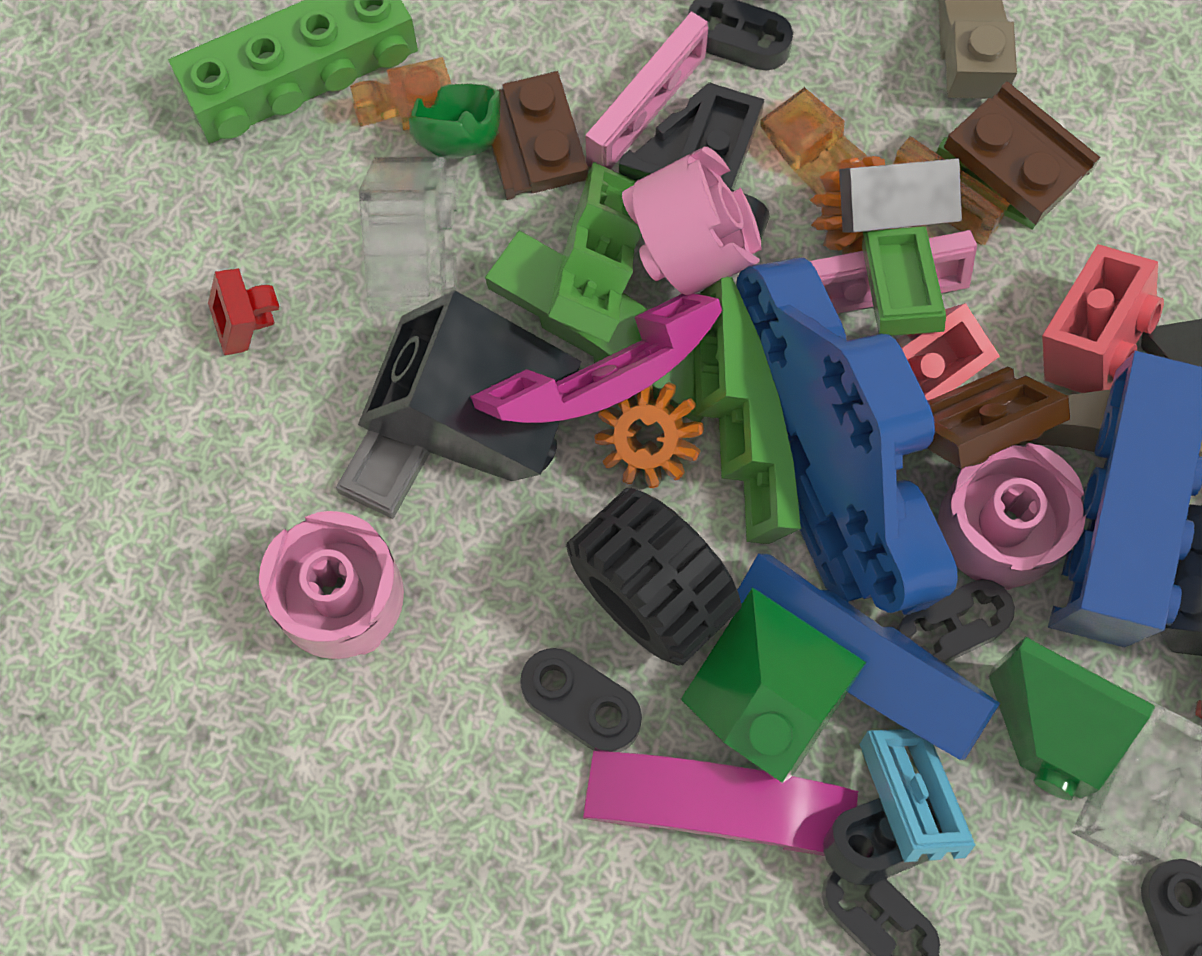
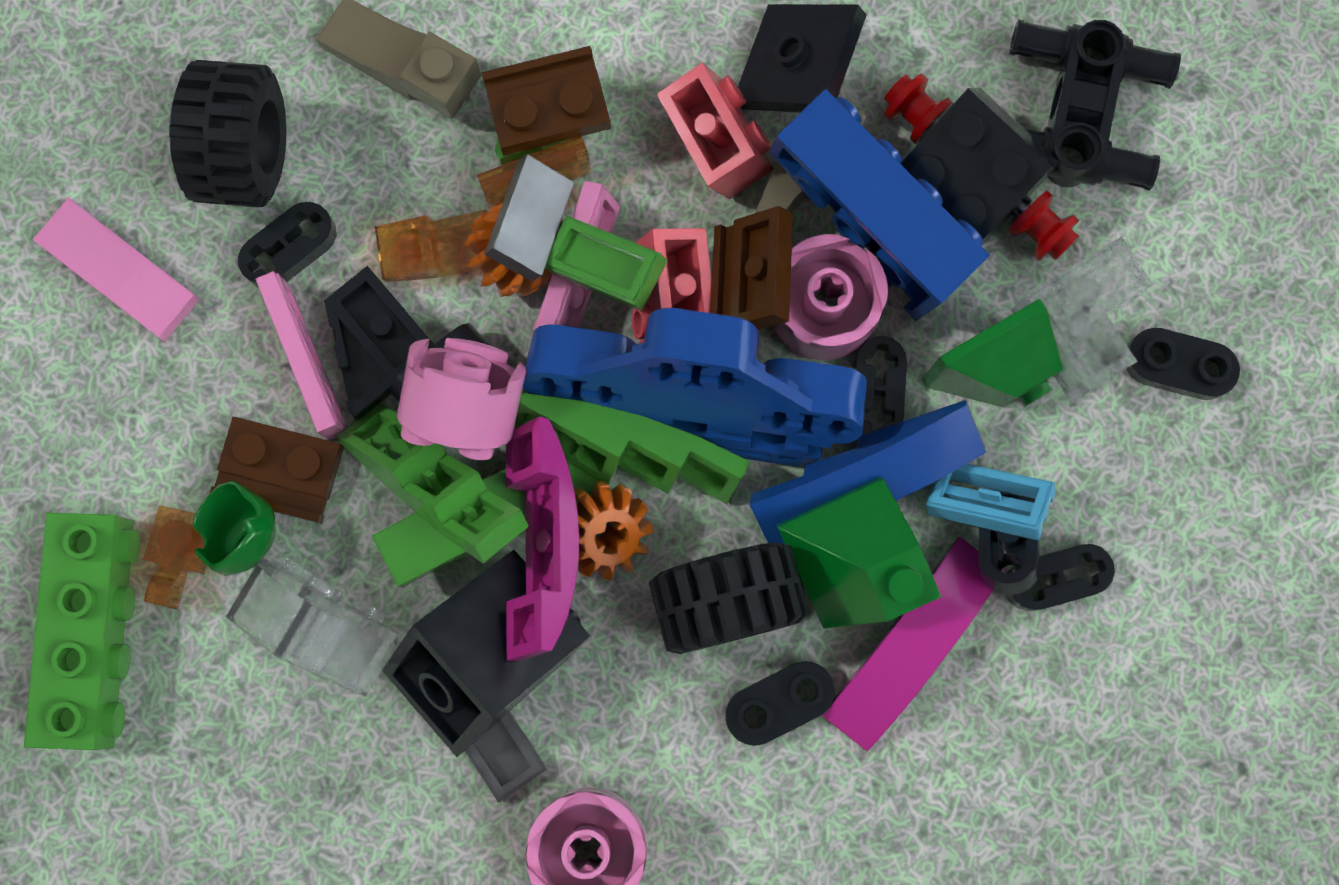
camera: 60 degrees left, 10 degrees up
(239, 310) = (296, 805): red tile -> none

